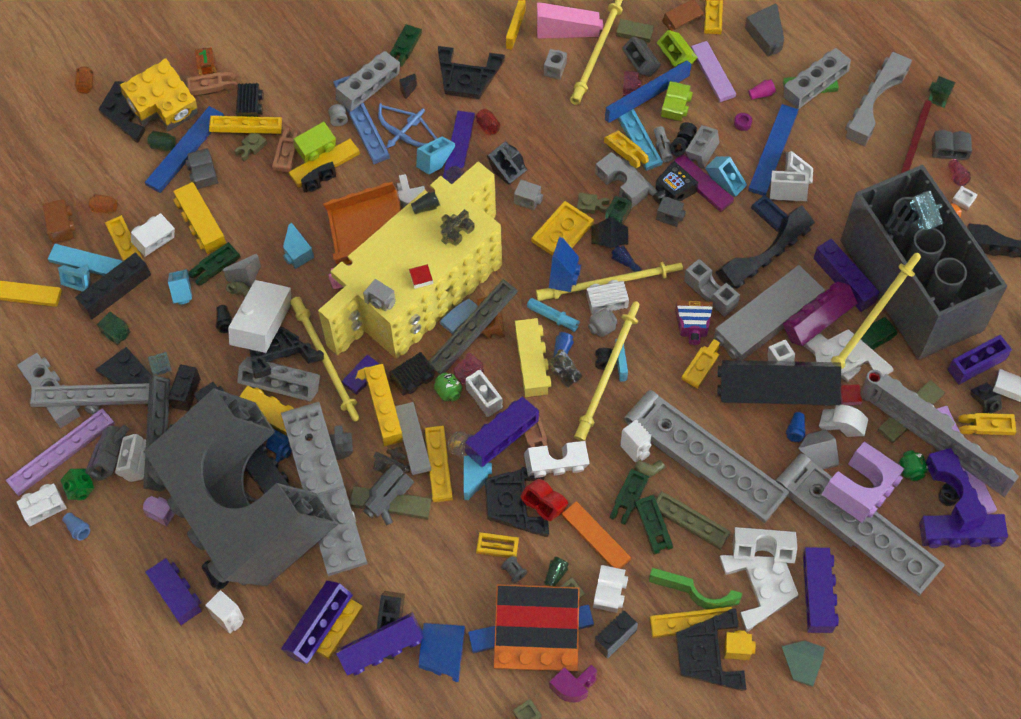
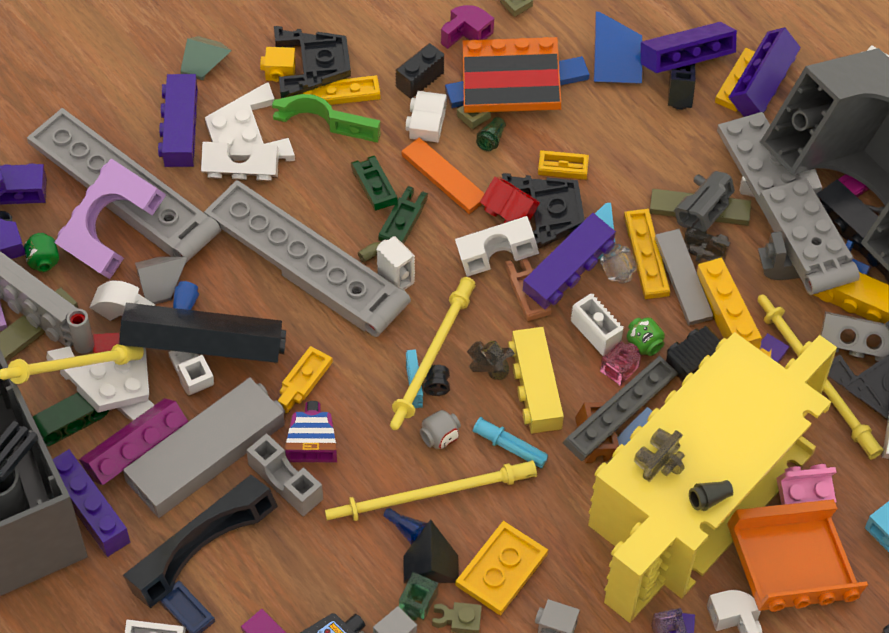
camera: 175 degrees right, 5 degrees down
(379, 295) = (754, 354): light grey brick -> none
(421, 276) = (701, 390): red tile -> none
(514, 569) = (541, 134): dark grey bush -> none
(563, 341) = (494, 398): blue cone -> none
(564, 267) = (496, 489): blue slope -> none
(607, 296) = (434, 465): white brick -> none
(670, 211) = (339, 598): dark grey brick -> none
(692, 520) = (327, 196): olive tile -> none

